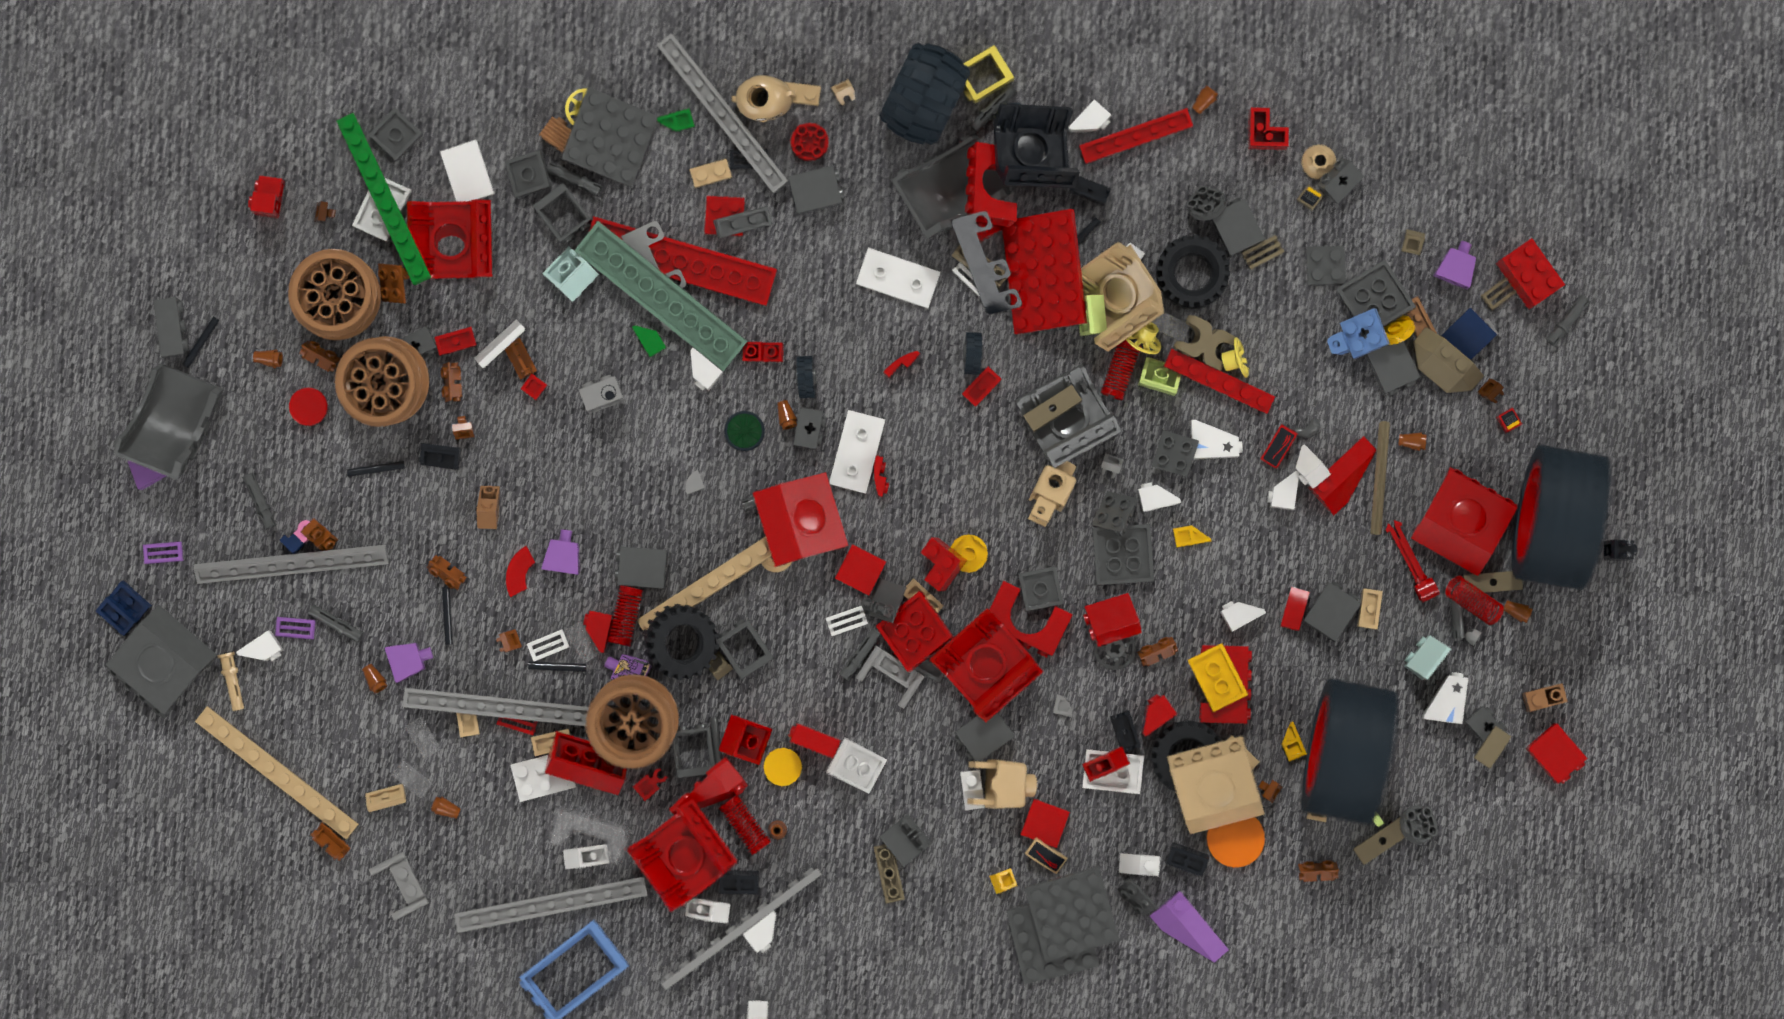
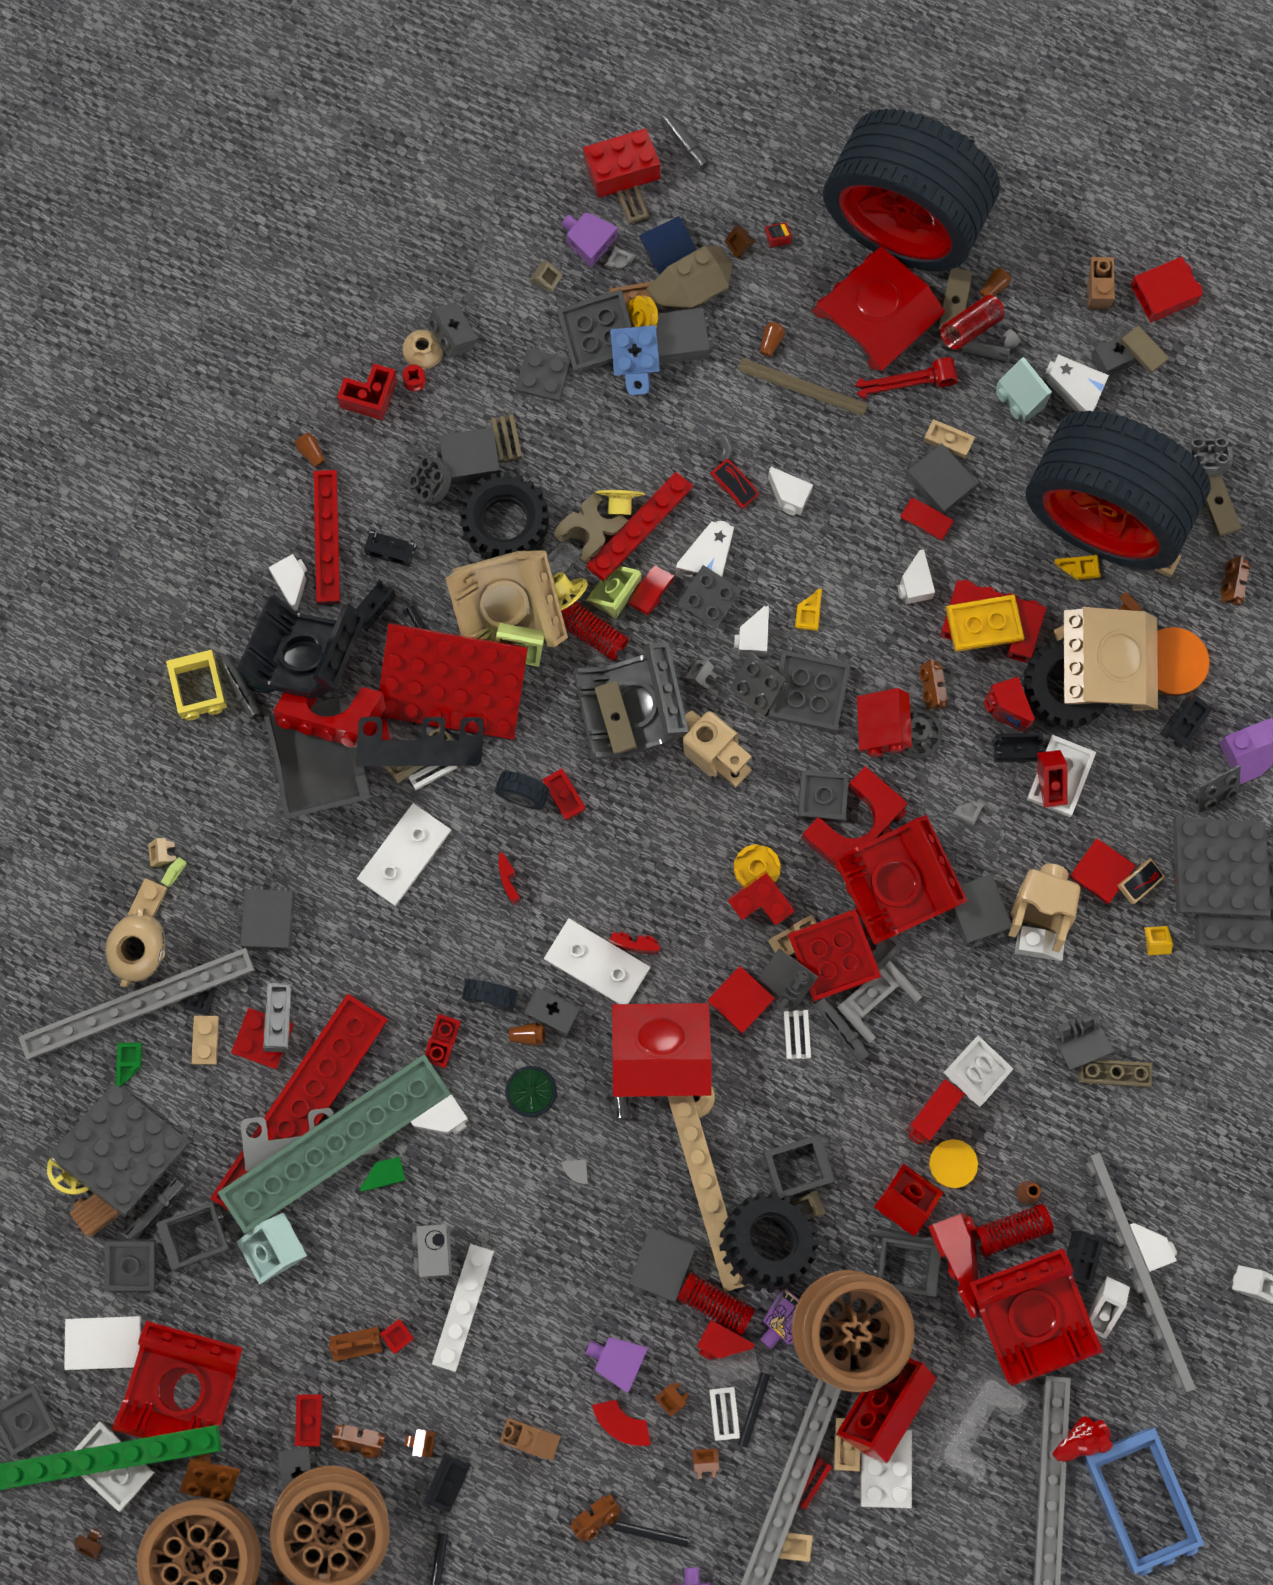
camera: 75 degrees left, 10 degrees down
(499, 344) = (330, 1362): white tile -> none
(546, 602) = (670, 1399): none -> dark orange tile
(569, 429) = (463, 1307): none -> white plate
(584, 856) = (1002, 1443): white slope -> none
(604, 915) = (1085, 1440): none -> red rock
(648, 786) = (934, 1338): red plate -> none
(809, 141) = (207, 910): red tile -> none
(831, 106) = (173, 871): none -> yellowish green tile
(925, 93) = (196, 750): black wheel -> none
(1139, 864) = (1179, 776): white slope -> none
(1142, 189) = (389, 548): none -> black hinge
(1168, 405) = (650, 590): none -> red slope
(1289, 166) = (414, 383): none -> red wheel
(1310, 197) = (460, 369): slope -> none
(1310, 468) = (771, 451): white slope -> none
(1345, 475) = (792, 430): red wedge -> none
(1446, 296) = (619, 258): none -> light grey tile

